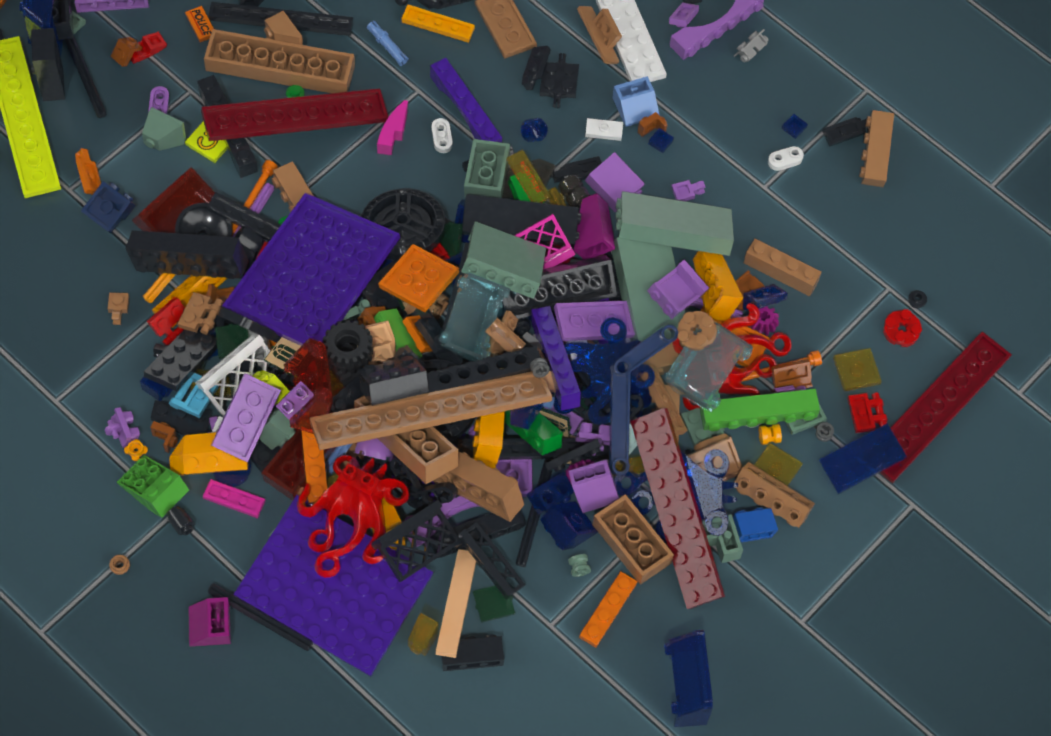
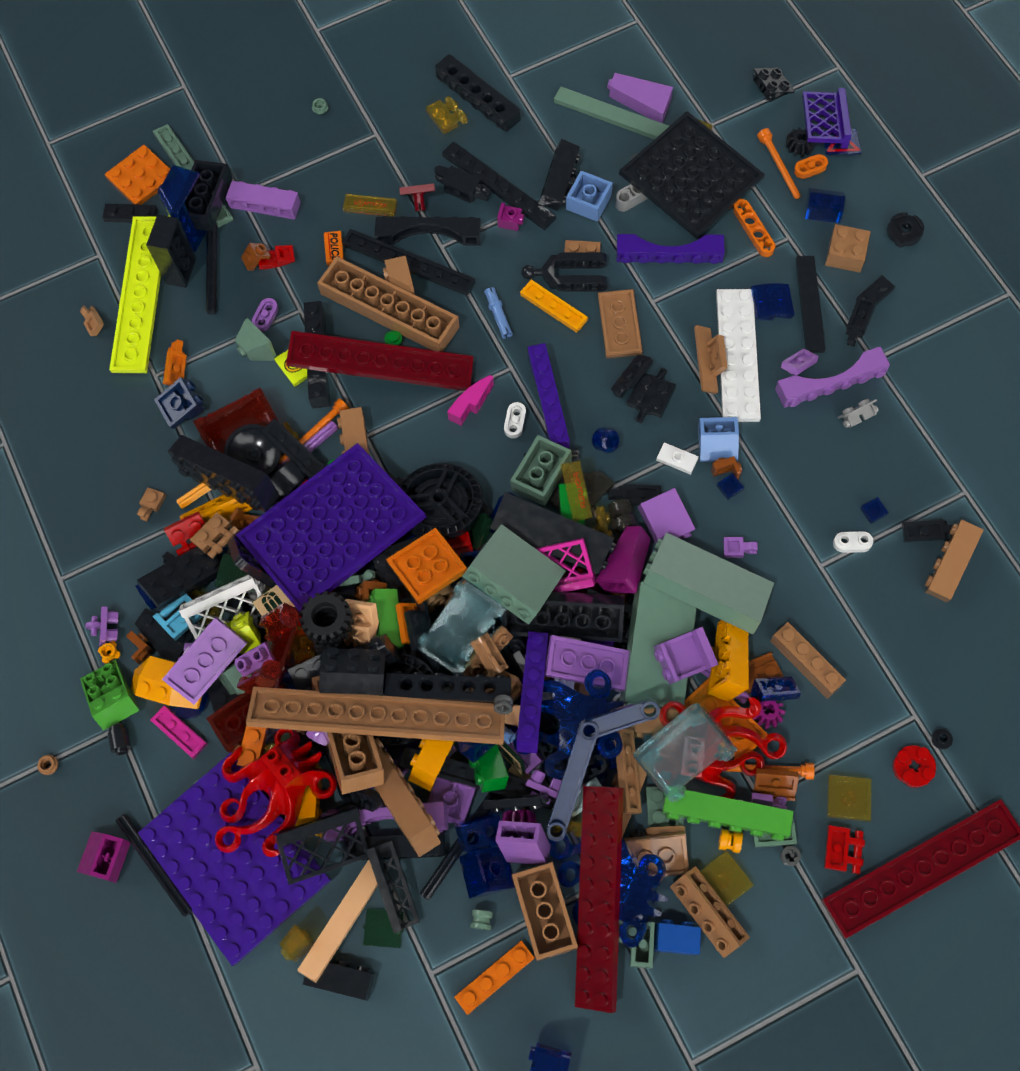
camera: 30 degrees right, 5 degrees up
(702, 339) = (675, 705): medium nougat plate -> none
(862, 458) = (820, 903): clear blue plate -> none

